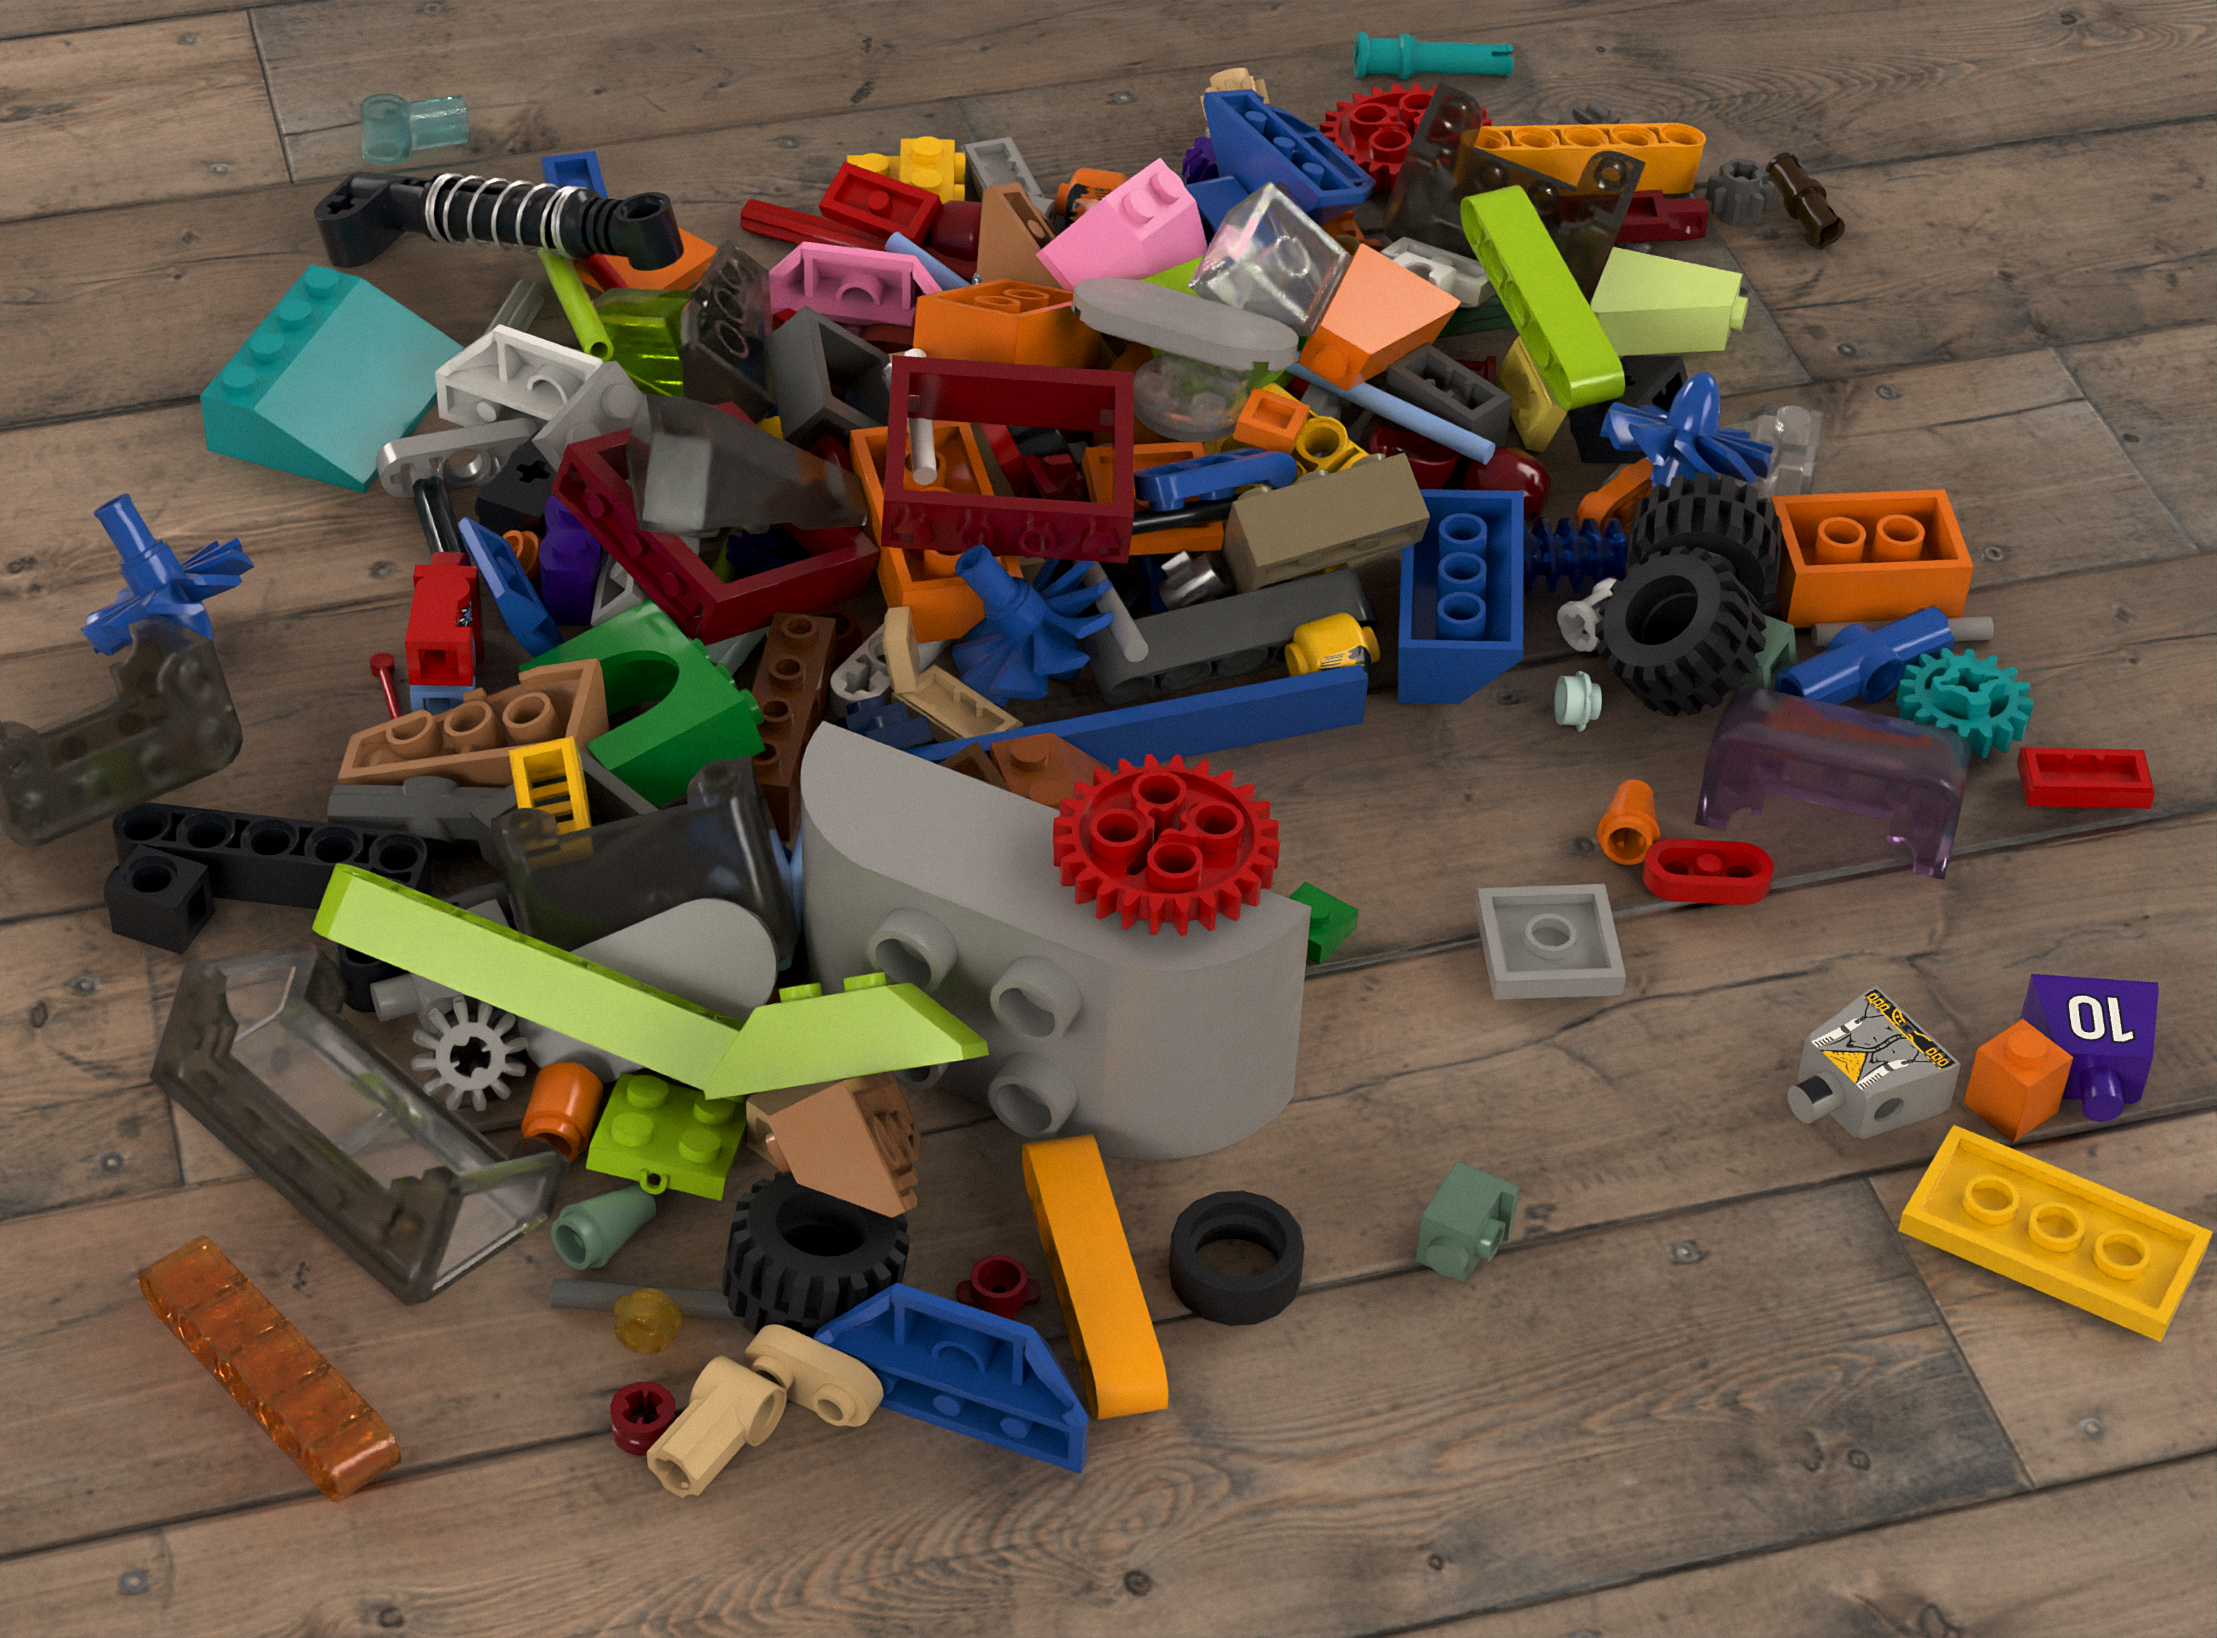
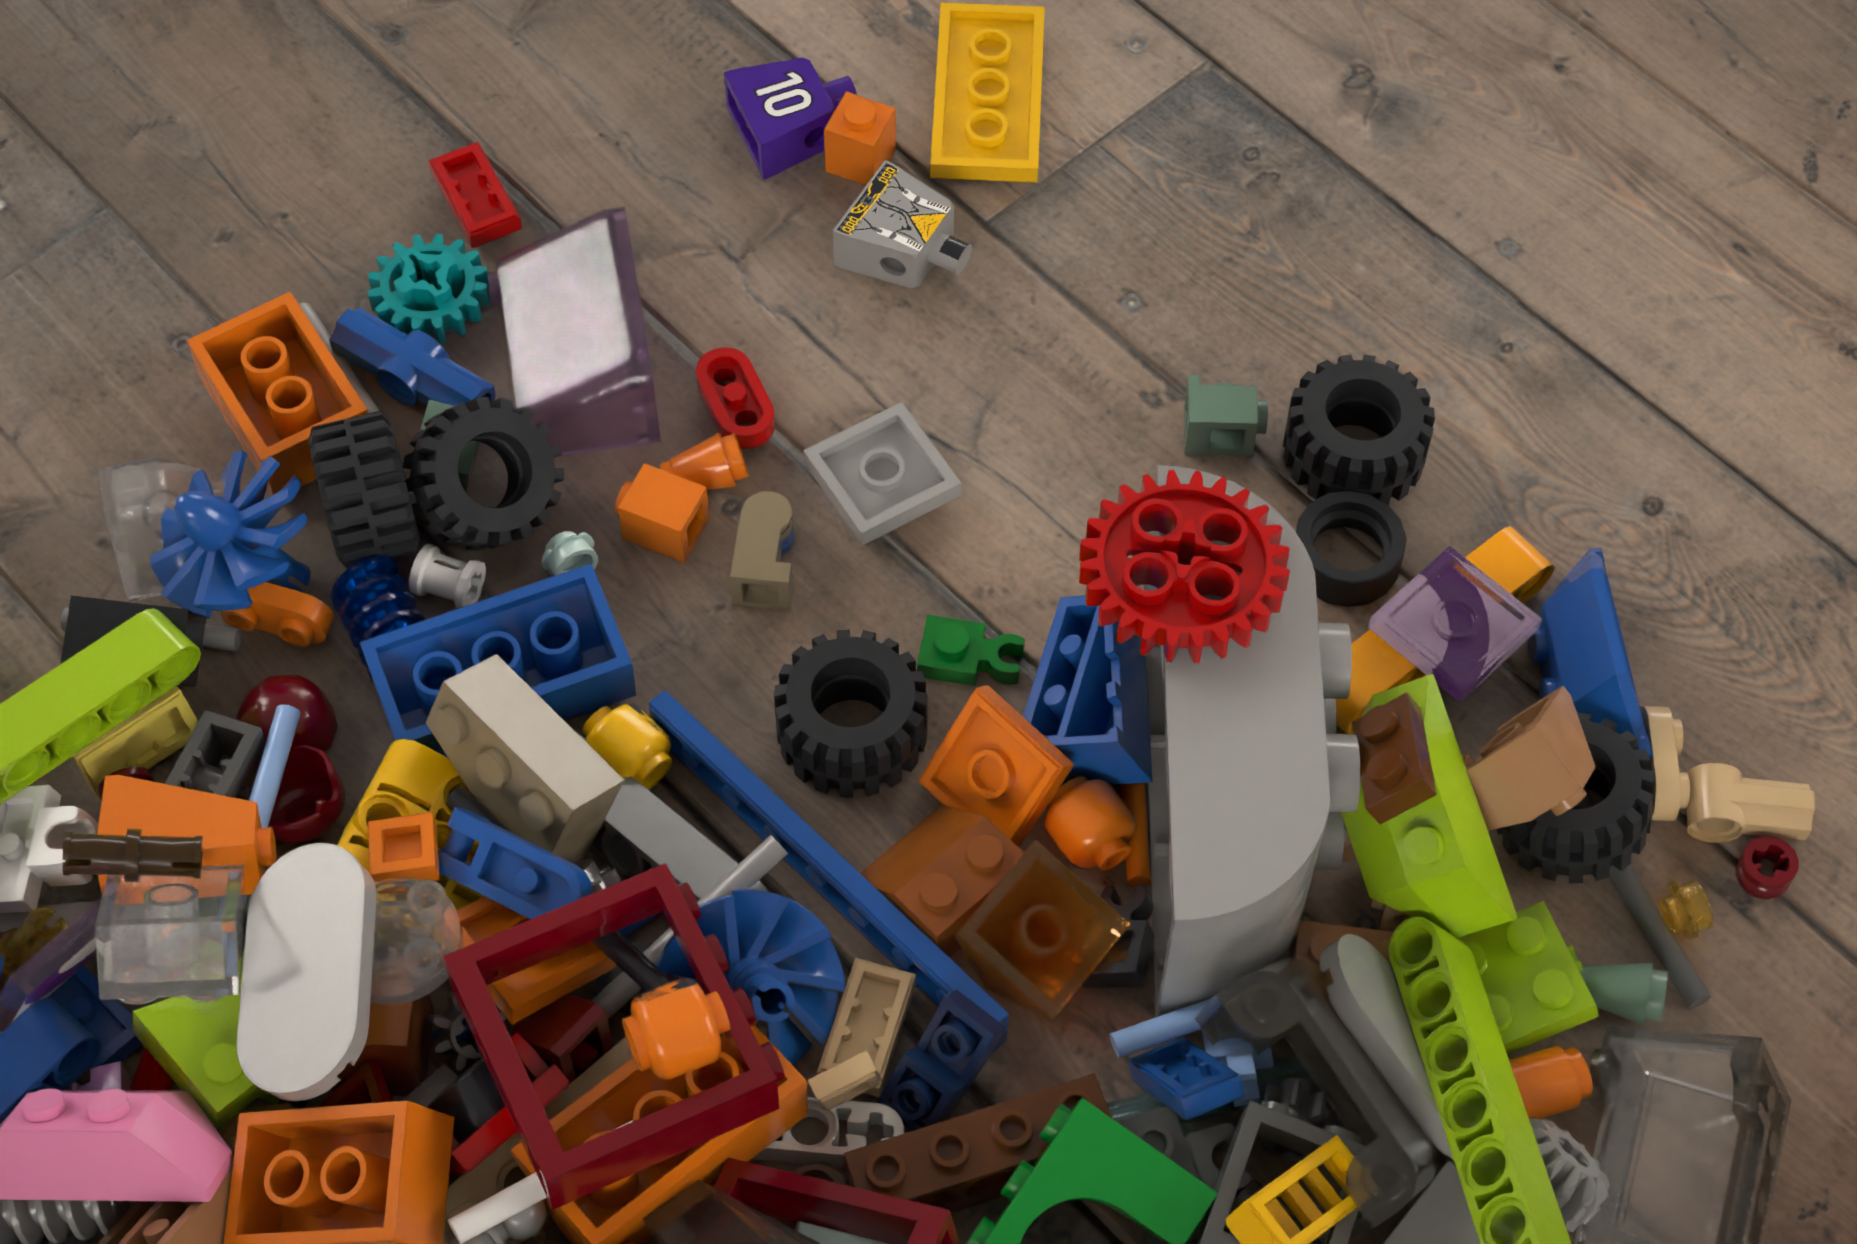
camera: 115 degrees left, 15 degrees up
(908, 972) = (1394, 758): none -> reddish brown plate
(960, 440) = (675, 1028): none -> orange head
(999, 1287) = (1491, 705): dark red plate -> none
(1069, 1251) = (1455, 623): none -> clear purple tile
(1300, 779) = (851, 671): none -> black tyre
(1341, 246) = (132, 855): none -> dark brown pin
(1364, 1357) = (1363, 396): none -> black tyre
(1501, 822) = (762, 538): none -> dark tan leg
(1585, 768) = (663, 512): none -> orange brick

